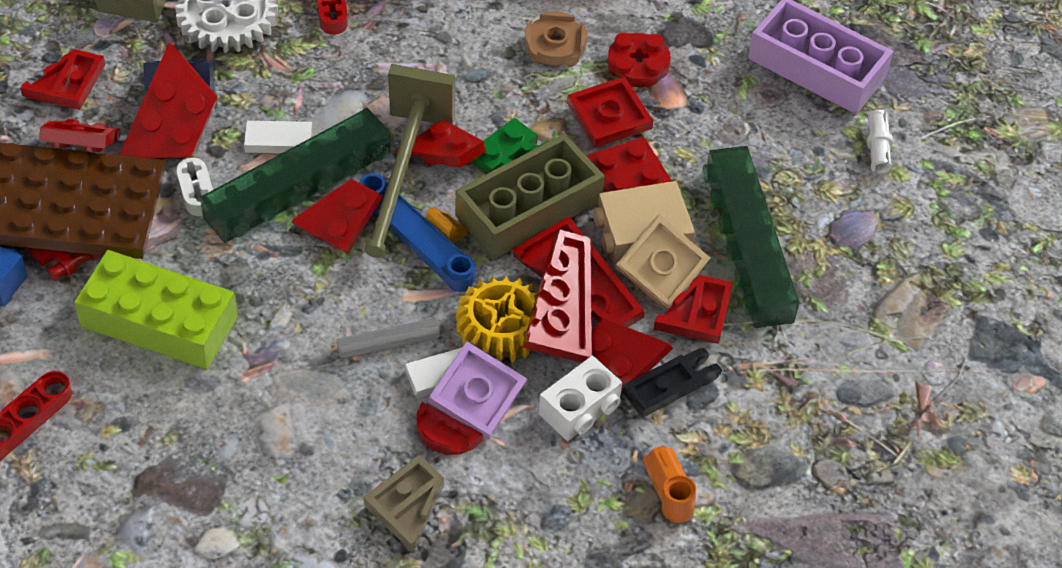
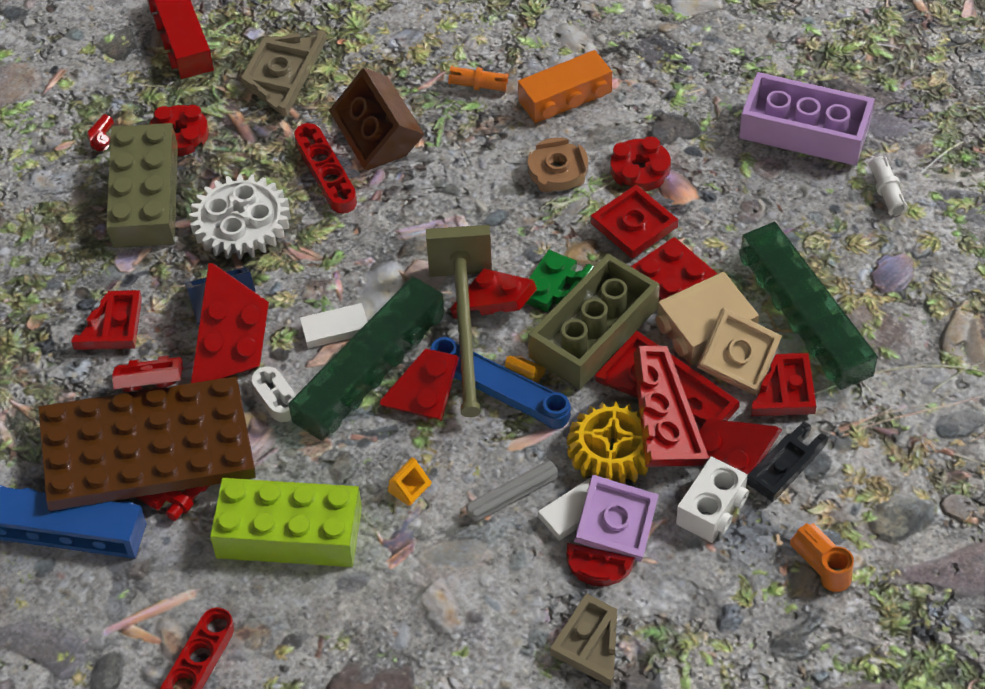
camera: 10 degrees left, 0 degrees up
(290, 303) = (409, 482): none -> light orange slope

